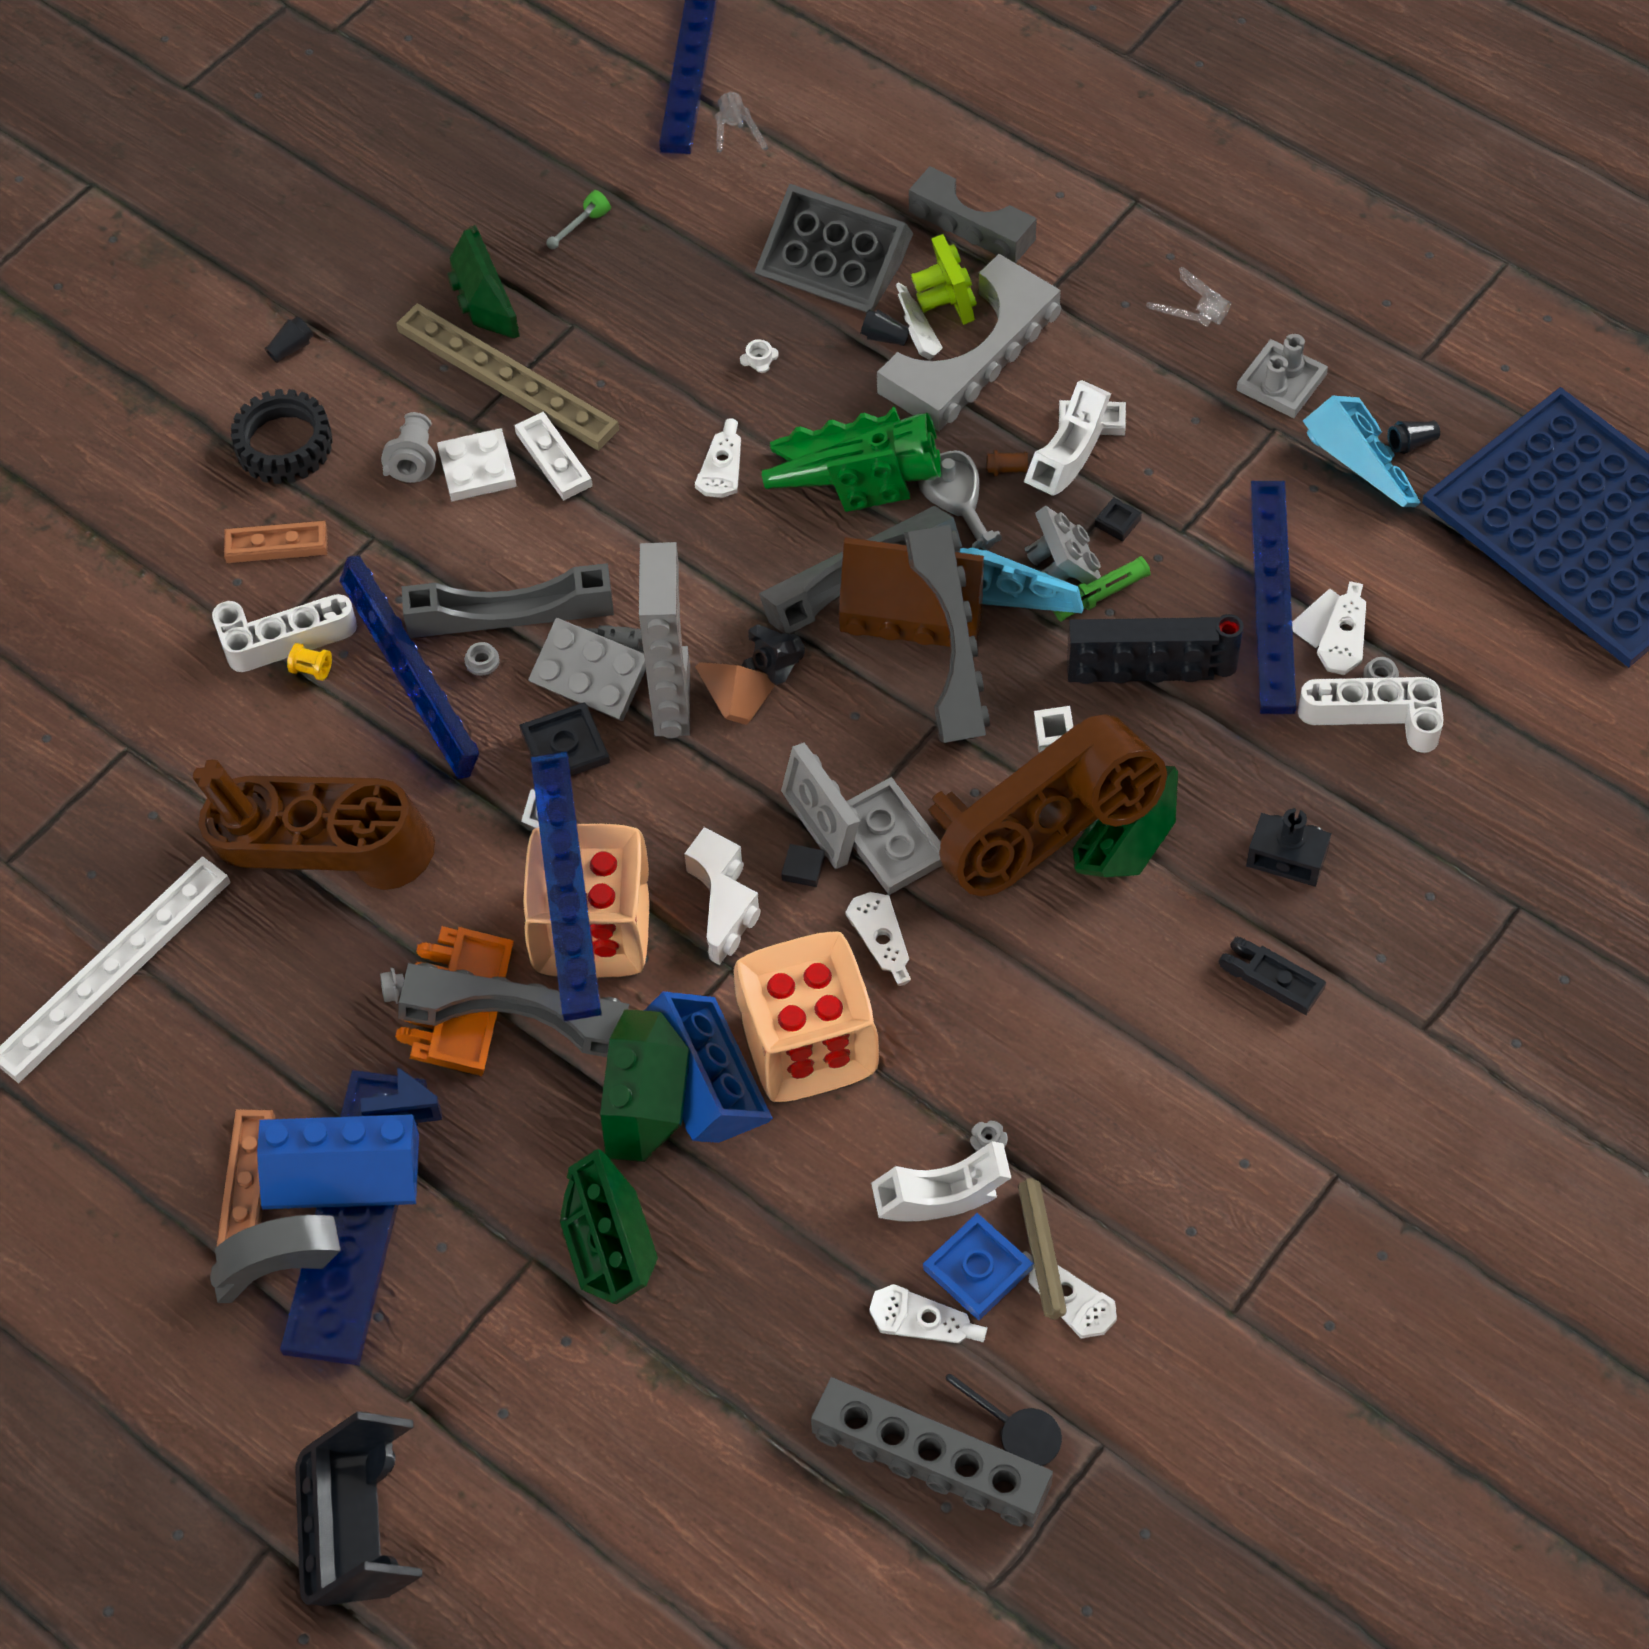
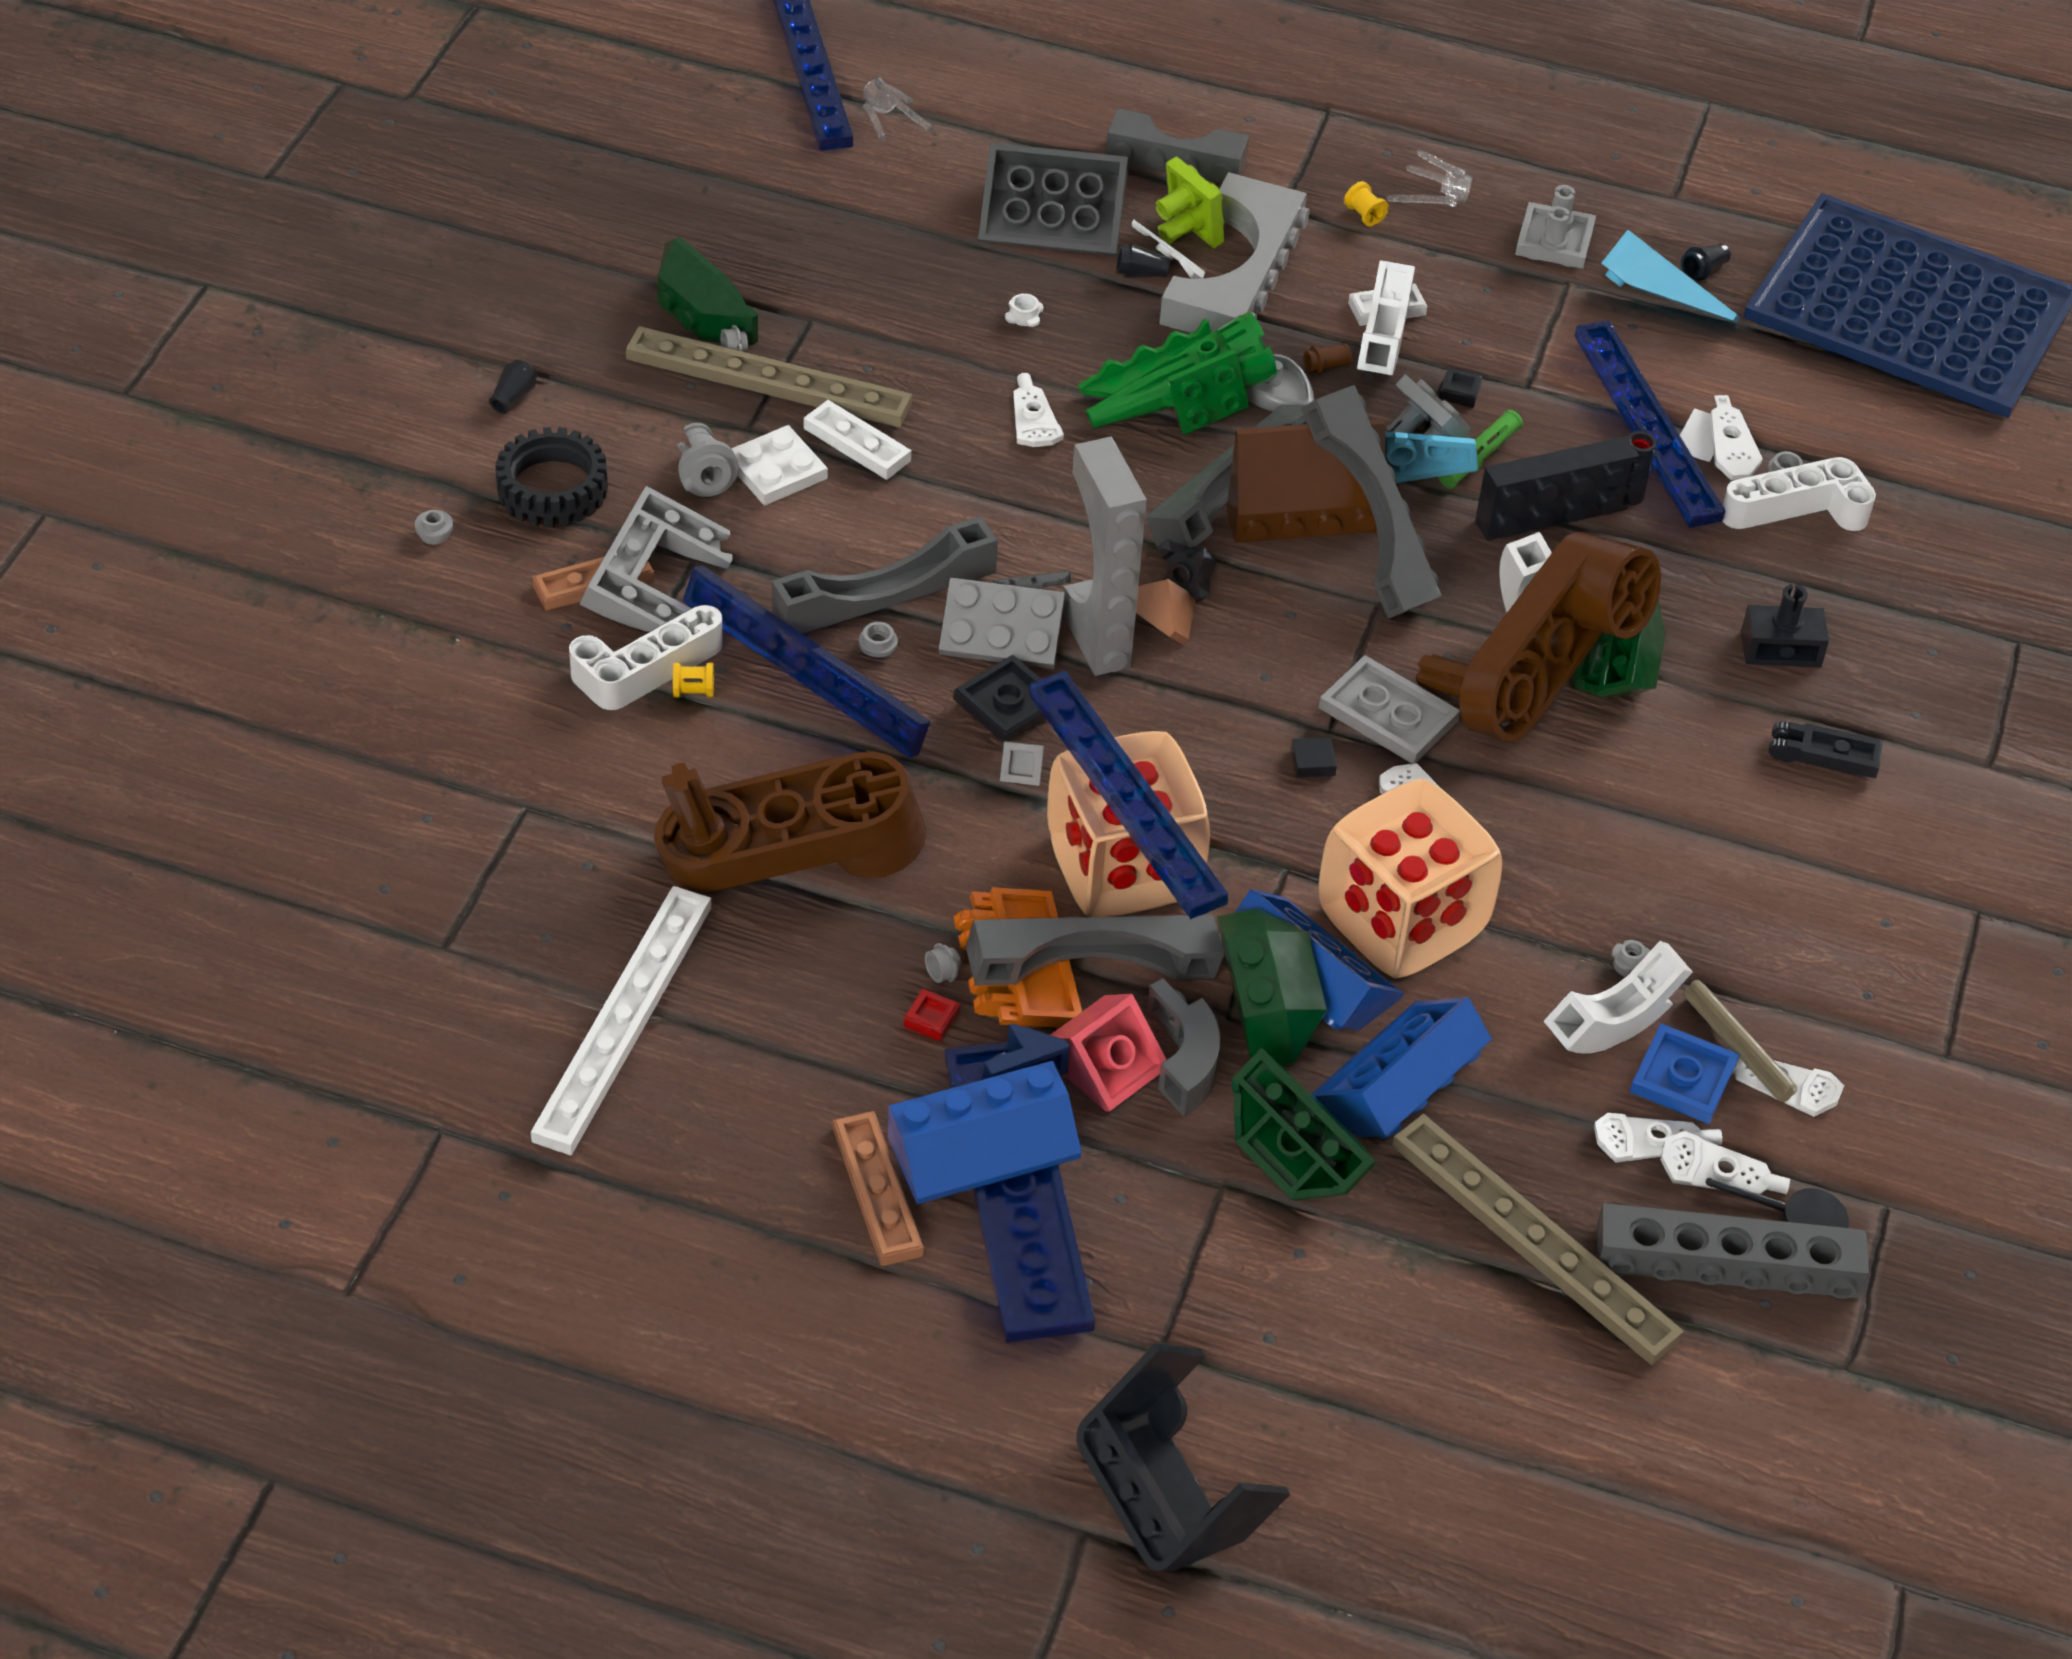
camera: 25 degrees left, 10 degrees down
(168, 461) = (434, 526): none -> light grey plate
(272, 1247) = (958, 1226): dark grey arch -> none
(342, 499) = (652, 522): none -> light grey wedge
(363, 1031) = (931, 1015): none -> red tile
(487, 1108) = (1111, 1050): none -> coral slope
(493, 334) = (734, 339): none -> light grey plate
(561, 1134) = (1192, 1071): none -> dark grey arch
(594, 206) = (776, 211): hinge -> none
(731, 904) = (1258, 802): white arch -> none
(731, 1192) = (1404, 1066): none -> blue slope
(769, 1391) = (1538, 1239): none -> dark tan plate
(820, 805) = (1313, 691): light grey plate -> none
(956, 1354) = (1704, 1164): none -> white piece
(1119, 310) = (1362, 200): none -> yellow bush

